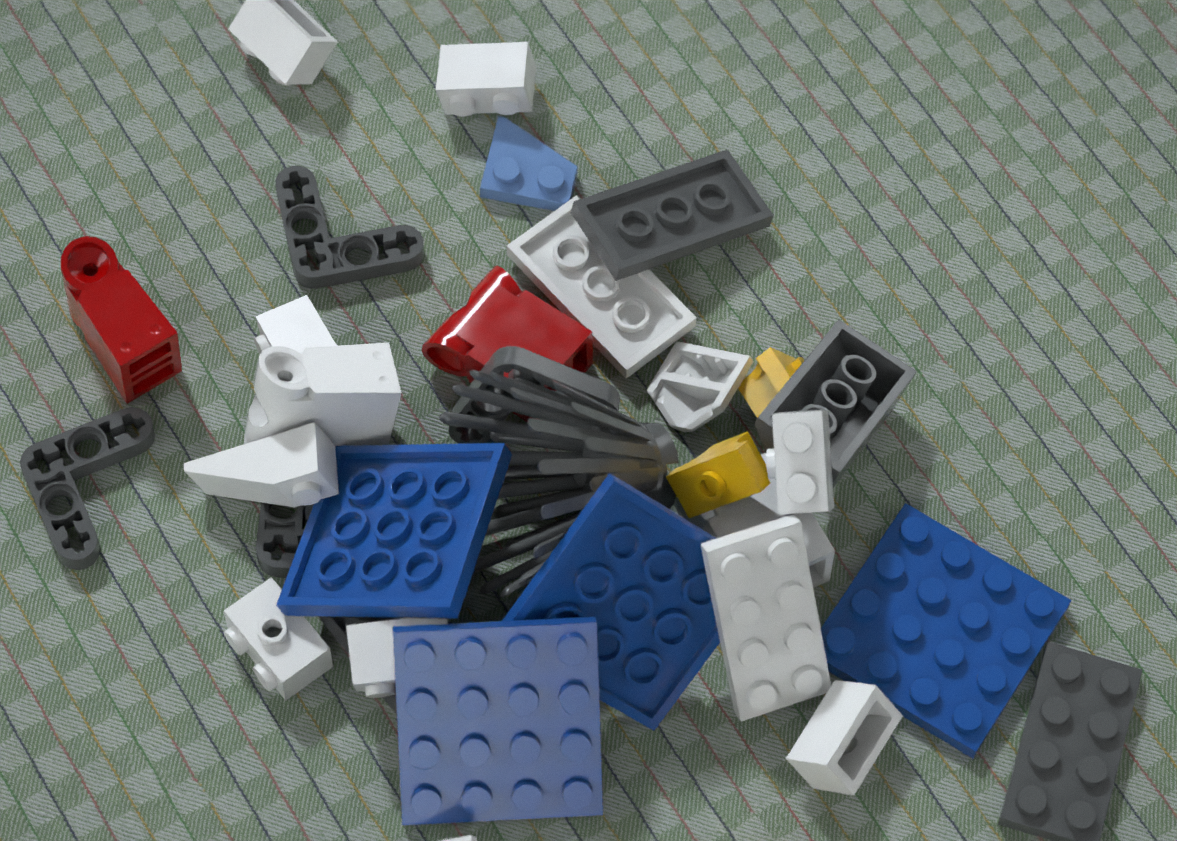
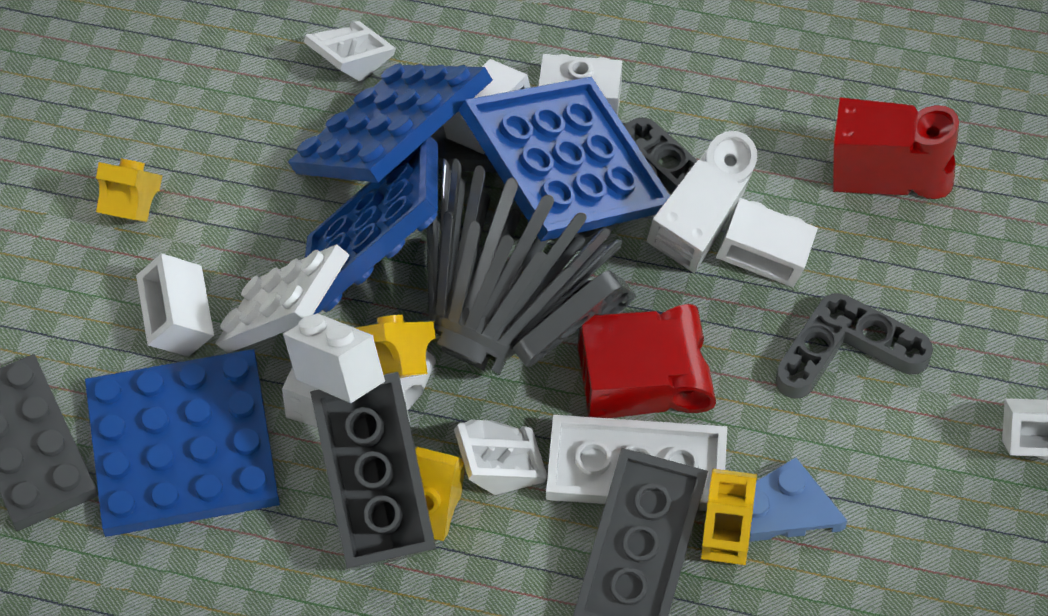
camera: 140 degrees right, 5 degrees down
(61, 478) = (814, 69): dark grey beam -> none
(277, 470) = (679, 142): white slope -> none
(486, 78) = (882, 528): white brick -> none
(591, 164) = (729, 516): none -> yellow brick

